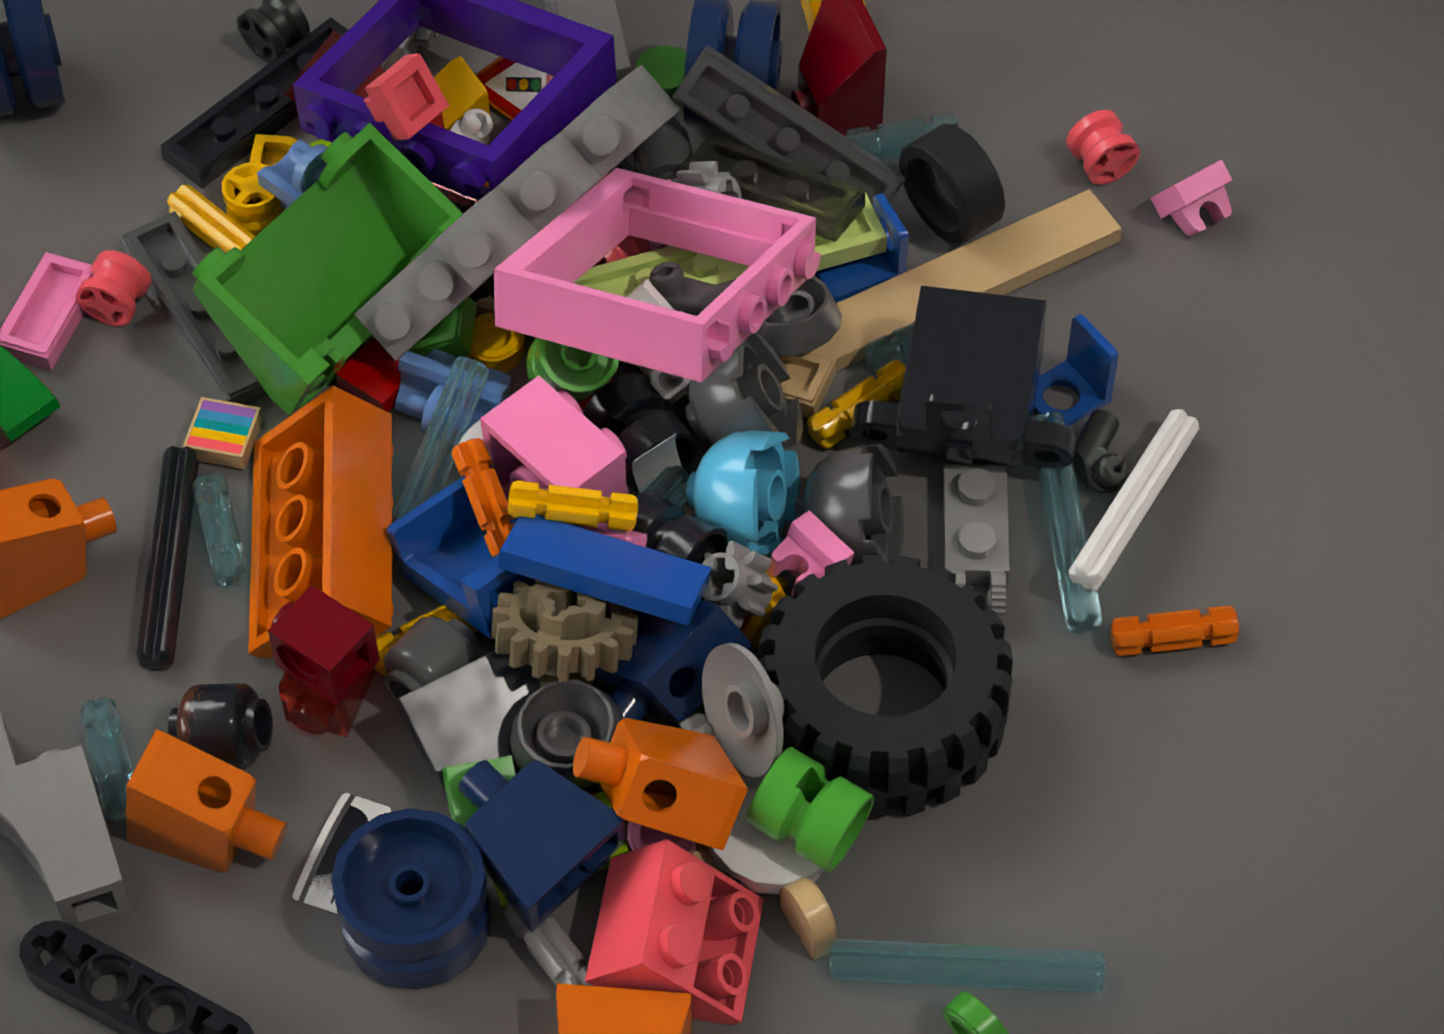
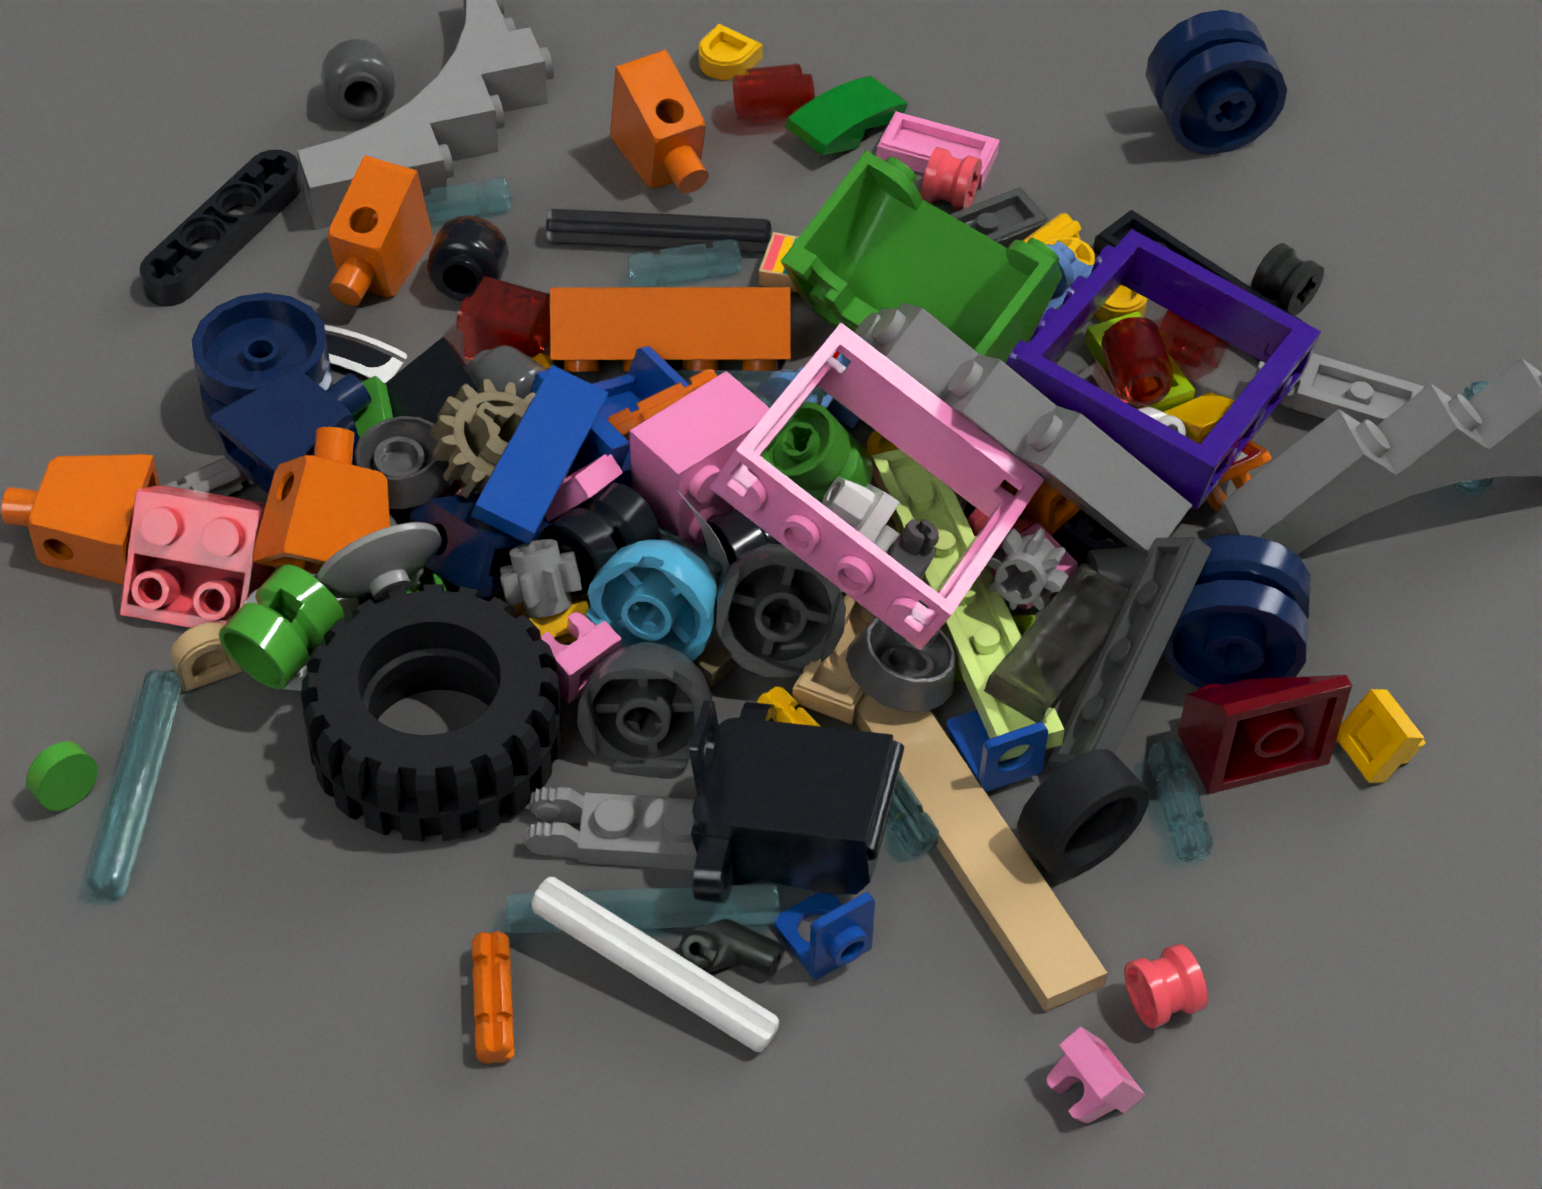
camera: 90 degrees right, 5 degrees down
(323, 644) = (503, 285): dark red brick -> none
(405, 97) = (1084, 280): coral tile -> none
(573, 505) = (611, 430): yellow axle -> none

